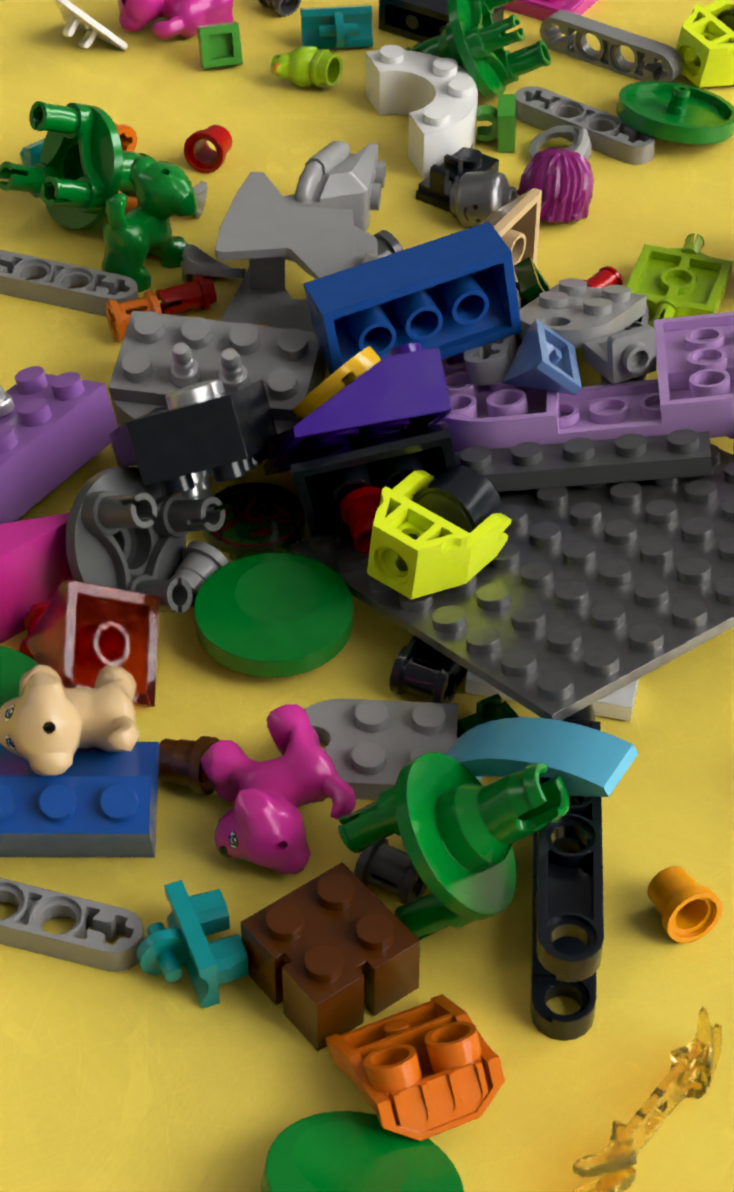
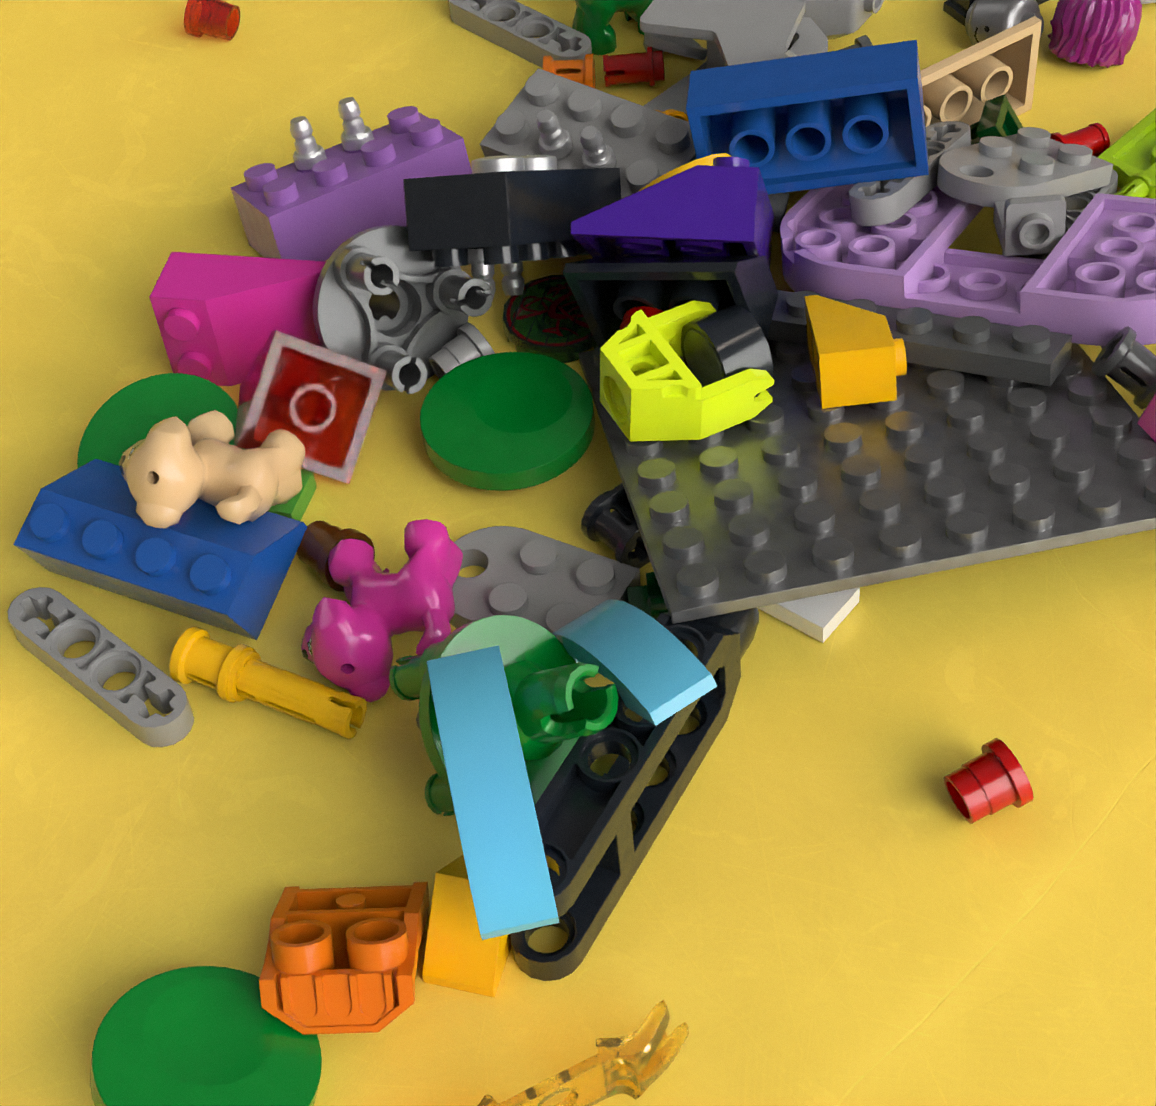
camera: 30 degrees right, 5 degrees up
(144, 883) = (241, 675): none -> yellow pin
(186, 944) = (207, 742): teal hips -> none
(328, 938) = (330, 780): reddish brown piece -> none
(503, 1007) = (454, 946): none -> yellow slope
(519, 879) = (491, 794): none -> medium azure slope
(545, 362) = (936, 213): medium blue slope -> none
(546, 485) = (852, 353): none -> yellow slope
(685, 906) = (740, 872): light orange piece -> none

